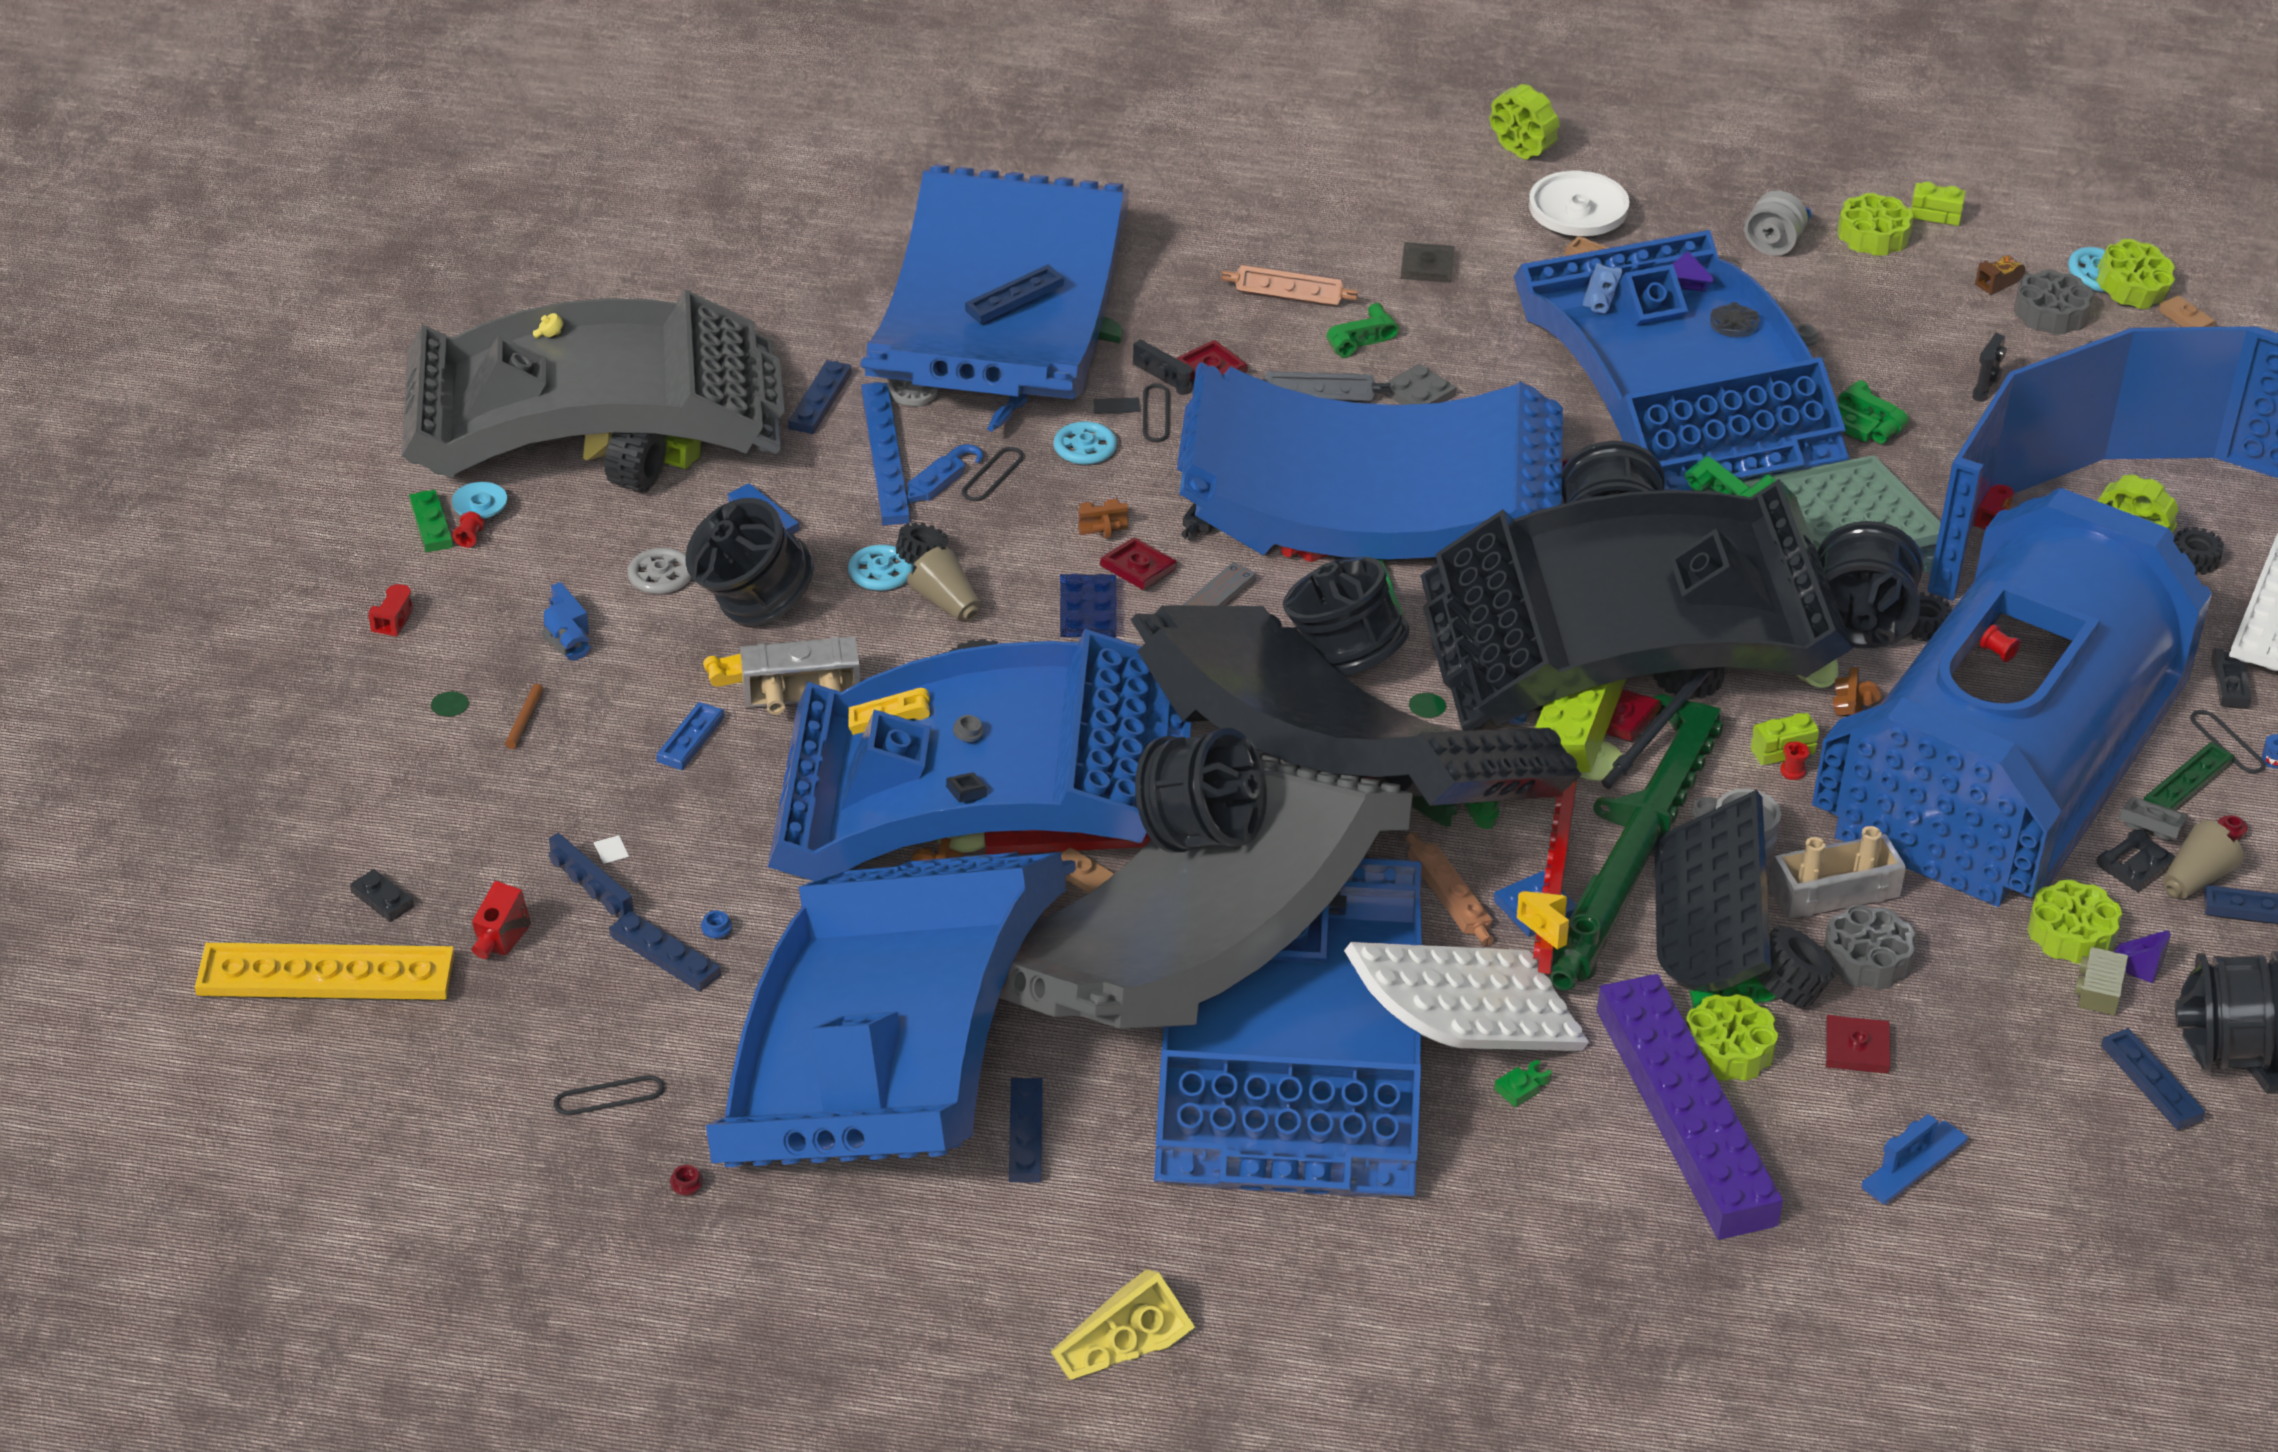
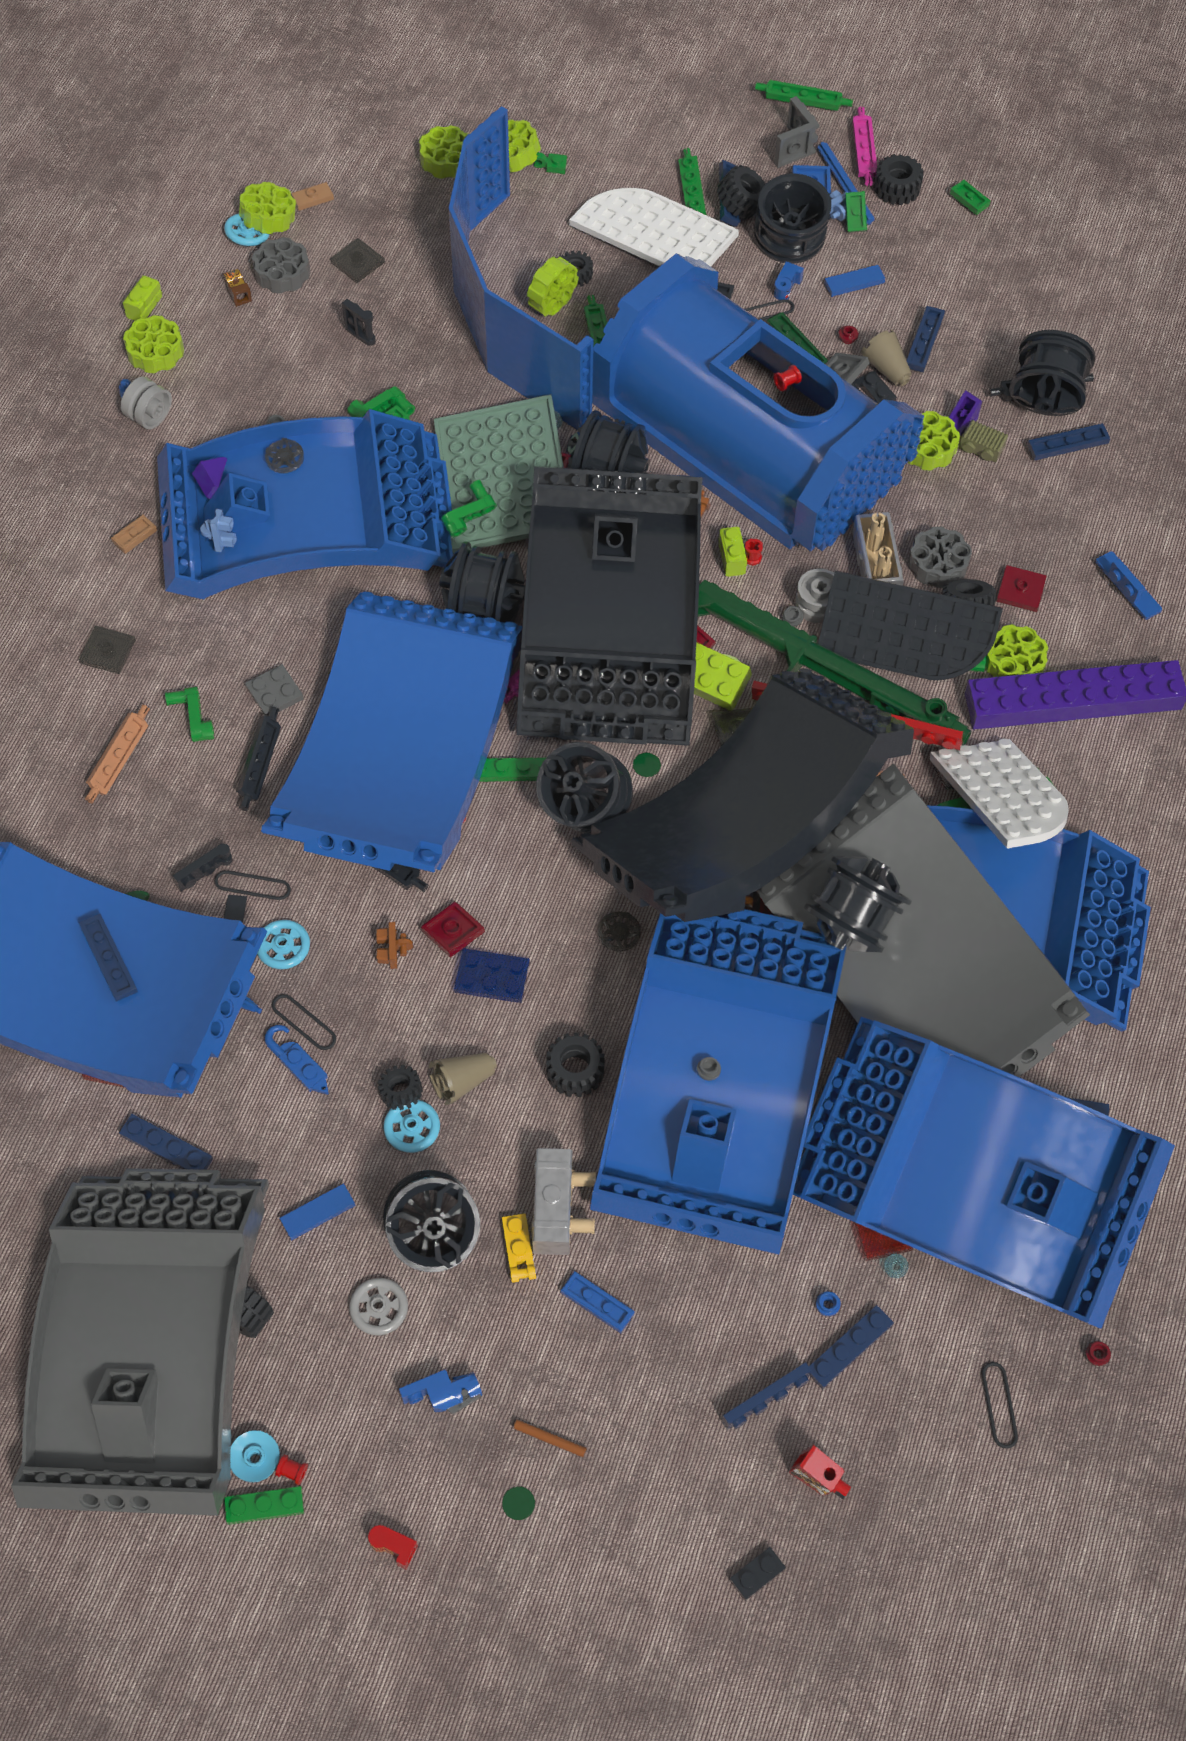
camera: 80 degrees left, 20 degrees up
(325, 971) = (848, 1627): yellow plate -> none
(549, 326) = (48, 1363): light yellow piece -> none
(611, 849) = (722, 1379): white sticker -> none
(885, 454) = (262, 1103): blue plate -> none
(904, 705) = (646, 1132): yellow plate -> none
(966, 787) = (776, 1079): black tile -> none
(1213, 355) = (206, 831): dark red plate -> none
(1223, 587) = (502, 885): dark grey tile -> none
(1545, 916) = (938, 729): yellow slope -> none
(1578, 203) = (72, 526): white dish -> none
(1624, 763) = (738, 653): black bar -> none

